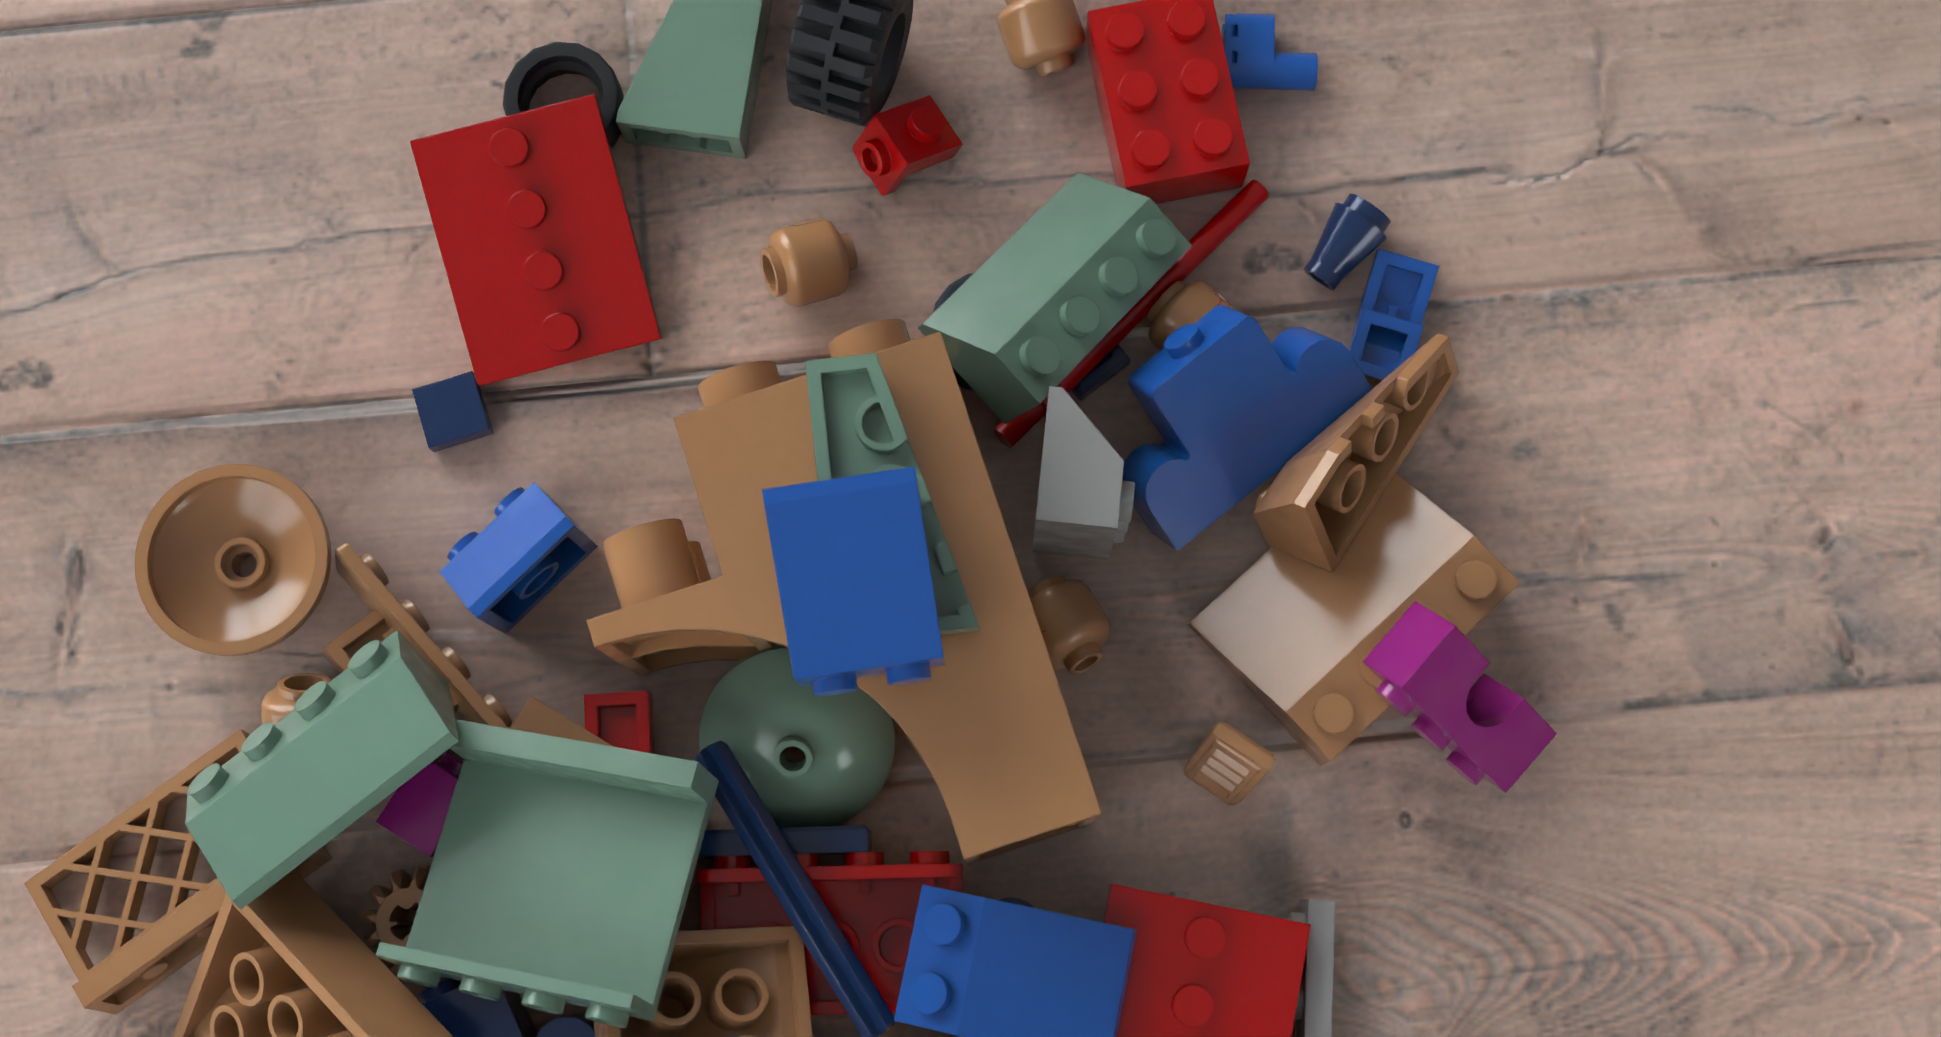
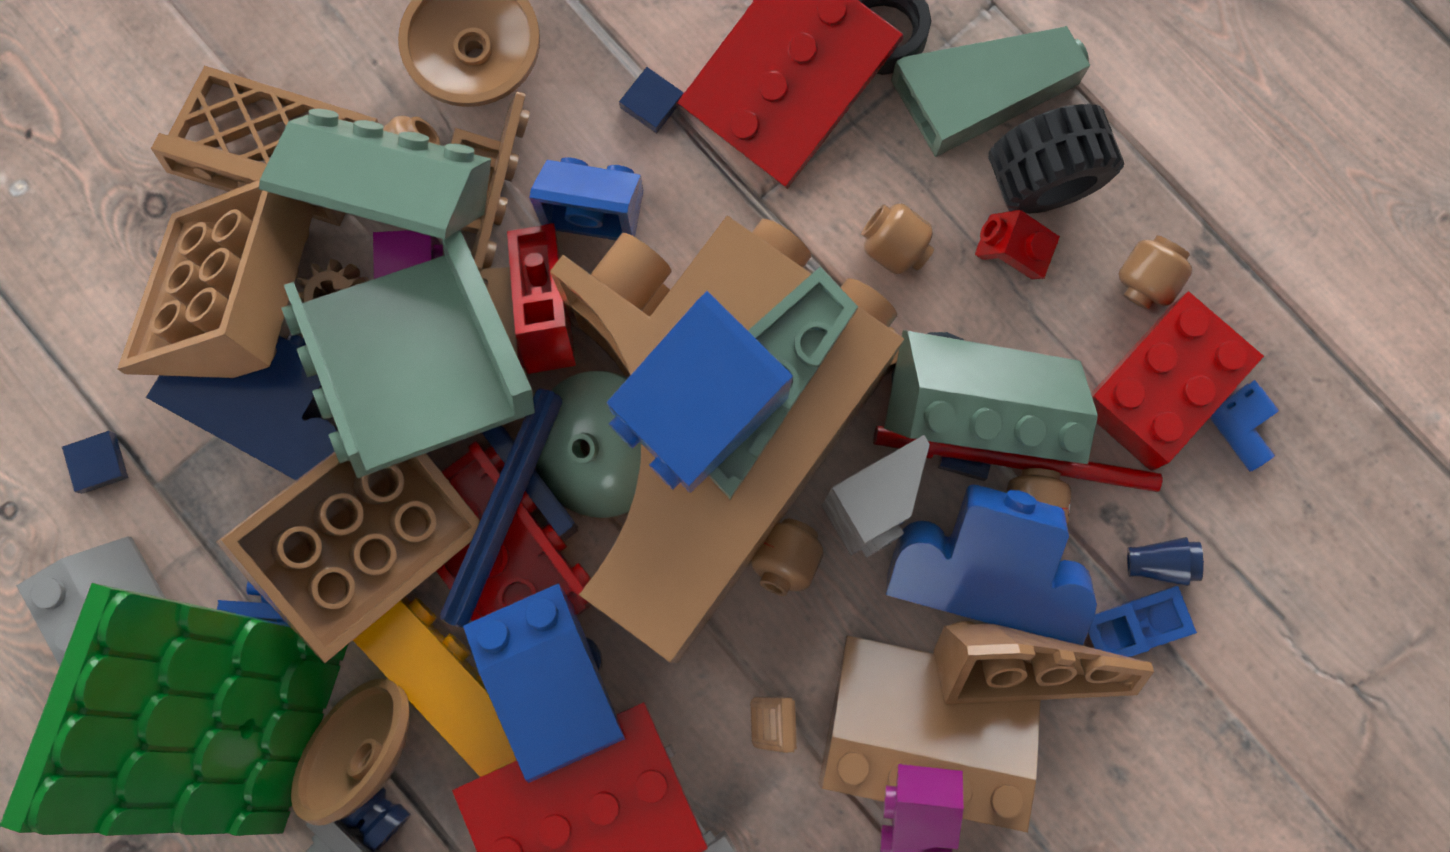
camera: 50 degrees right, 0 degrees up
(590, 687) = (538, 309): none -> red slope

